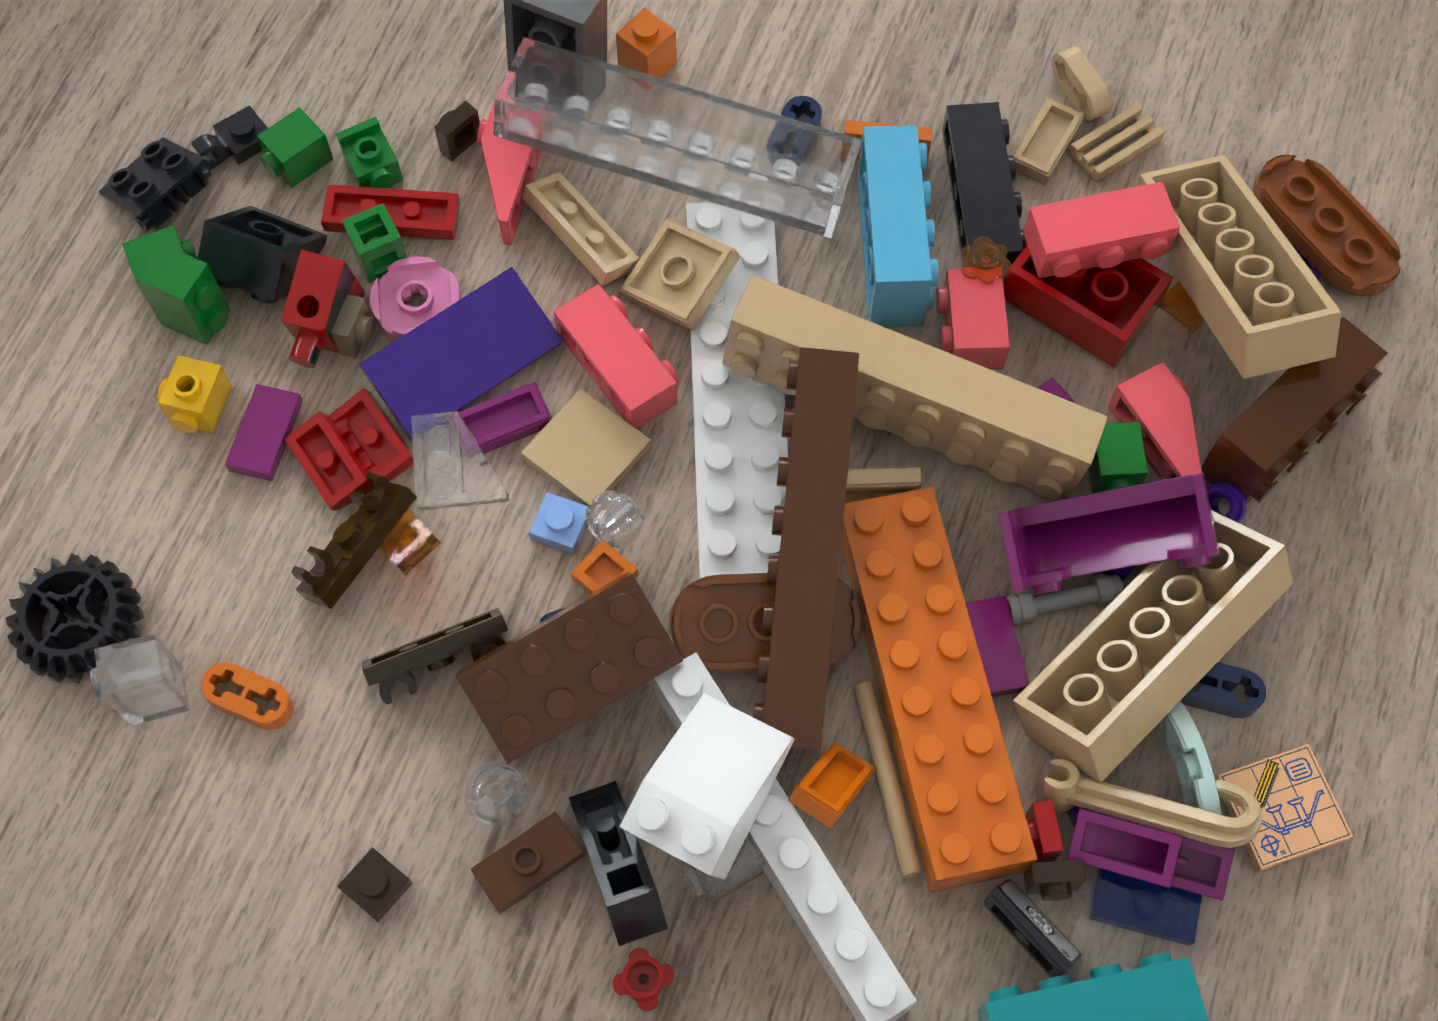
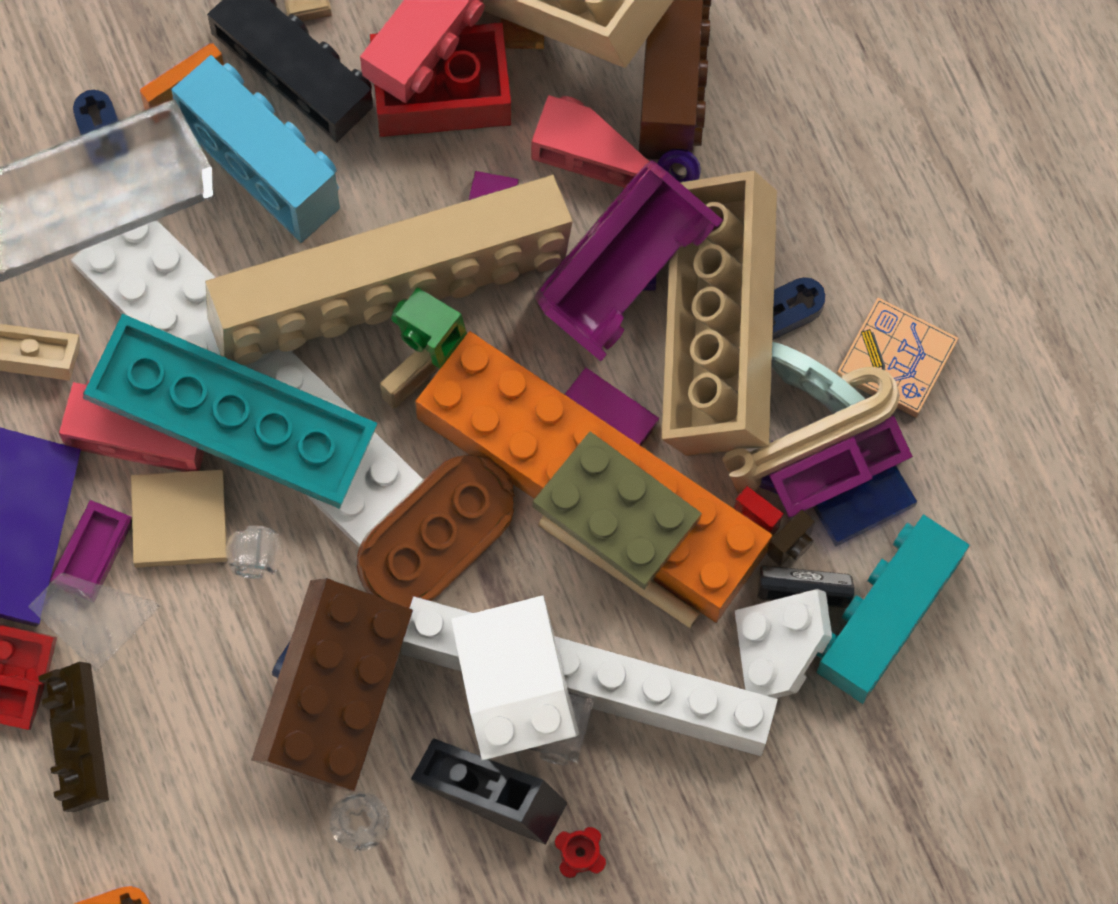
camera: 45 degrees left, 5 degrees up
(409, 542) = (118, 701): clear orange plate -> none
(433, 651) = (216, 761): dark brown plate -> none
(527, 862) = (425, 848): reddish brown plate -> none
(559, 523) = (213, 590): light blue plate -> none
(601, 567) = (283, 597): orange plate -> none
(679, 273) = (103, 302): tan tile -> none
(690, 396) = (230, 411): none -> teal plate
(809, 544) = (425, 447): reddish brown brick -> none
(832, 785) = (590, 606): orange tile -> none
(902, 455) = (429, 325): none -> green brick
(920, 724) = (617, 510): none -> olive plate
(967, 957) = (781, 641): none -> white plate
(973, 319) = (378, 172): coral brick -> none
(987, 269) = (349, 130): clear orange plant -> none
(1101, 591) = (648, 306): light grey bar -> none
(1118, 458) = (583, 195): green brick -> none

